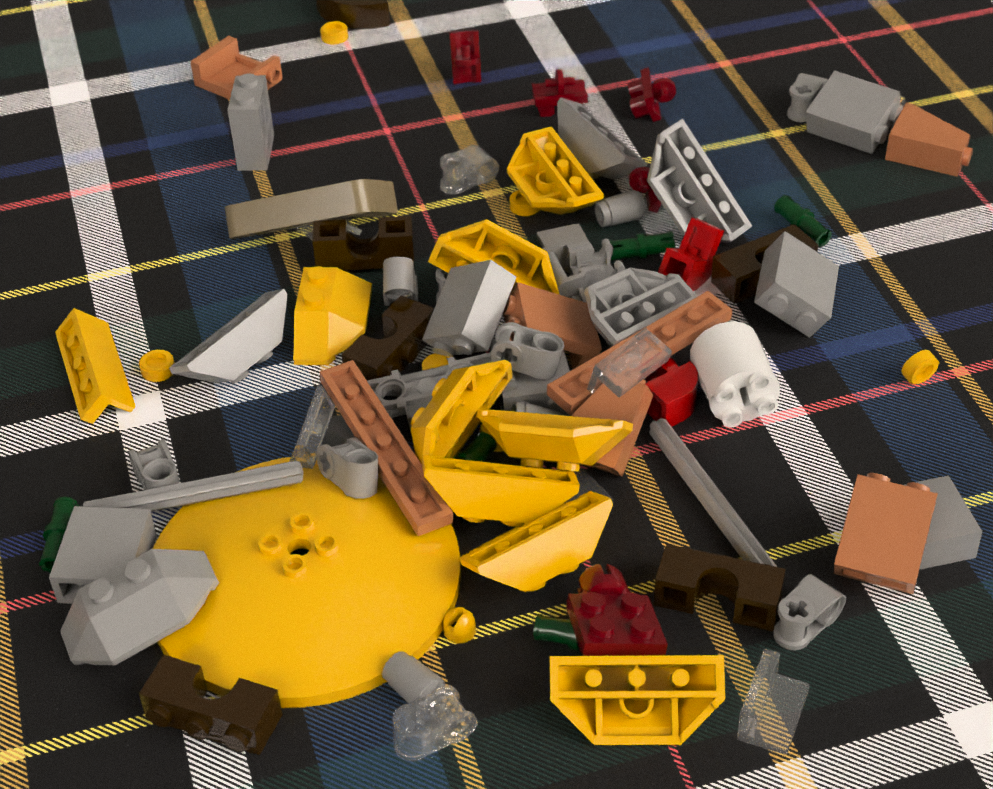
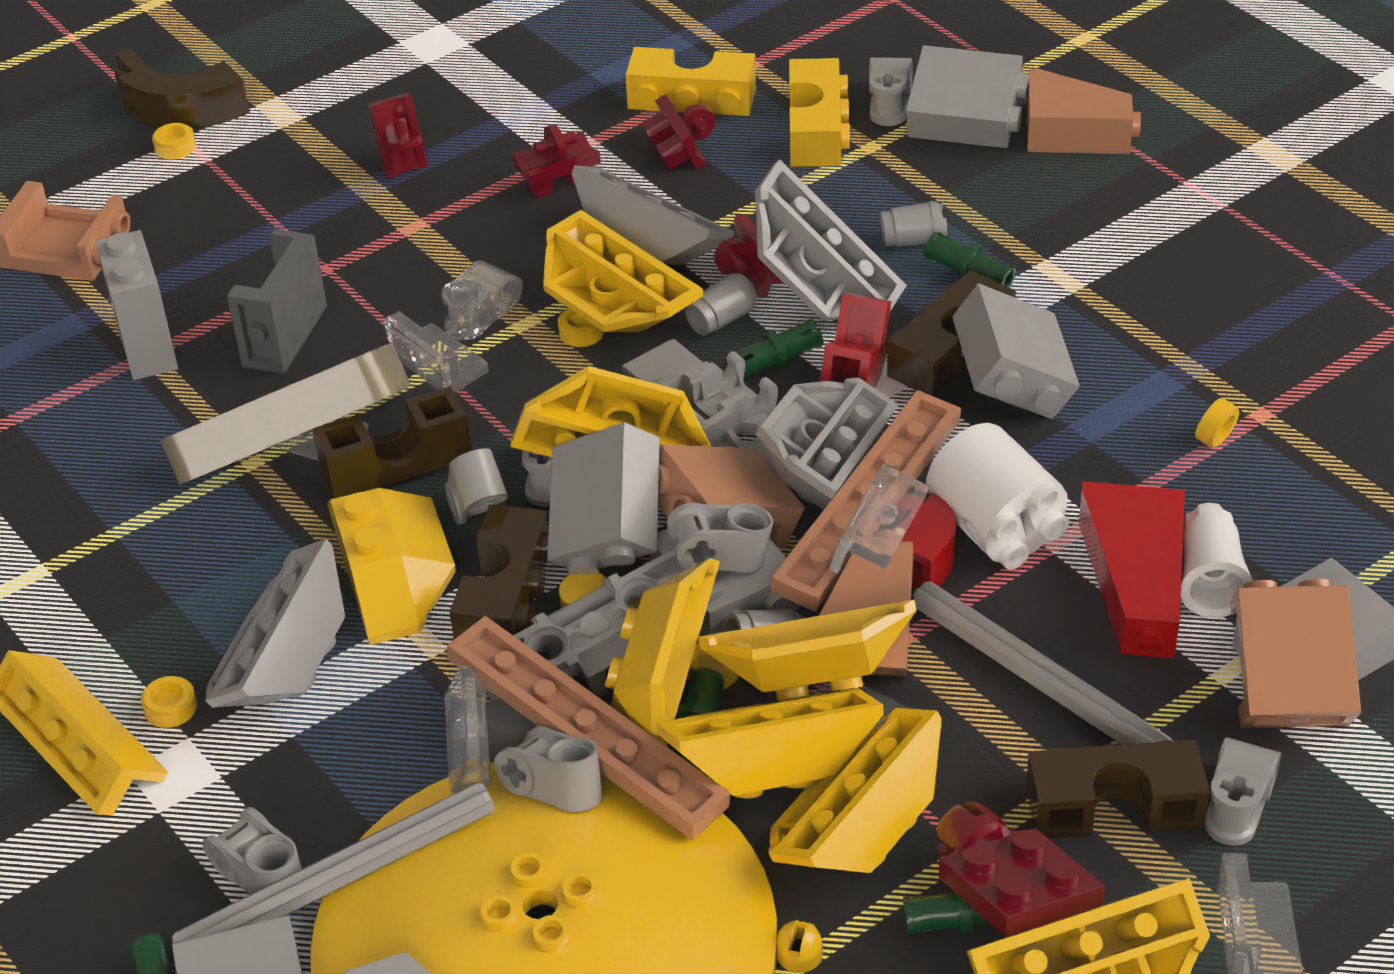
camera: 20 degrees left, 0 degrees up
(340, 144) = (281, 314): none -> dark grey panel
(423, 197) = (433, 353): none -> clear panel
(692, 72) = (723, 85): none -> yellow arch
(752, 98) = (818, 112): none -> yellow arch
(771, 186) = (912, 224): none -> light grey piece
(816, 444) = (1137, 561): none -> red slope
(865, 453) = (1211, 561): none -> white plant

